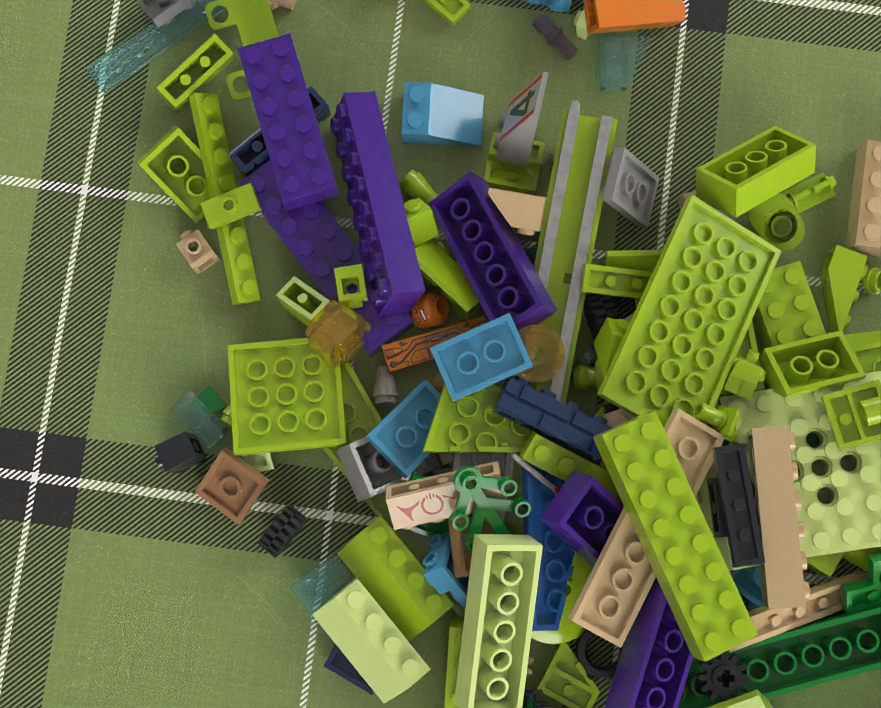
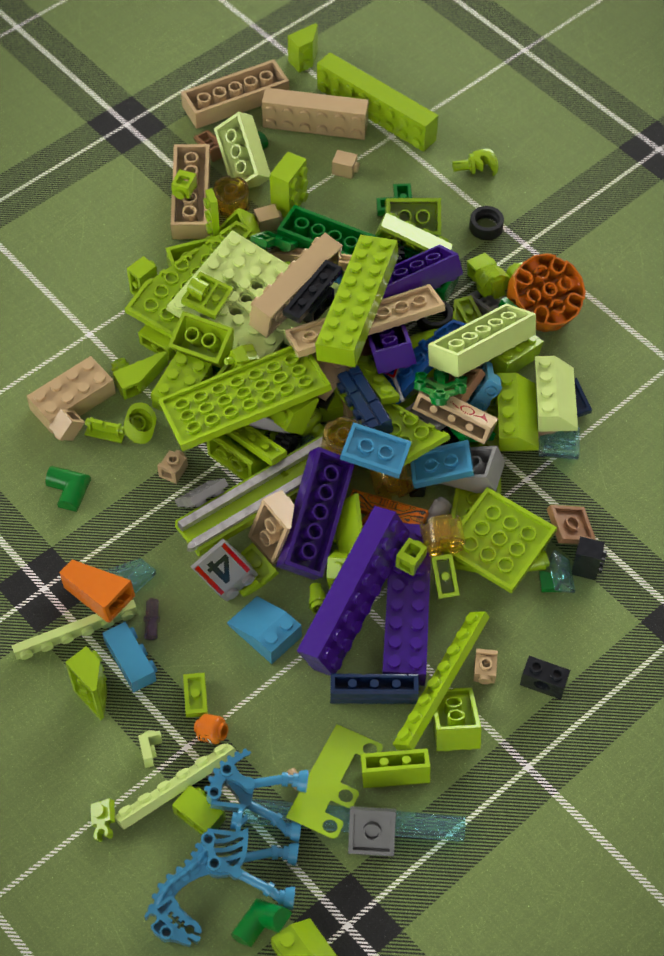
camera: 140 degrees left, 25 degrees down
(129, 285) = (544, 677): none -> black brick
(231, 206) = (443, 659): lime plate -> none
(282, 531) = (560, 480): black tyre -> none
(288, 122) = (365, 673): dark purple brick -> none
(721, 419) = (277, 342): lime bracket -> none
(755, 171) = (126, 446): lime brick -> none
(771, 108) = (73, 486): none -> green brick
(848, 158) = (66, 425): none -> tan brick

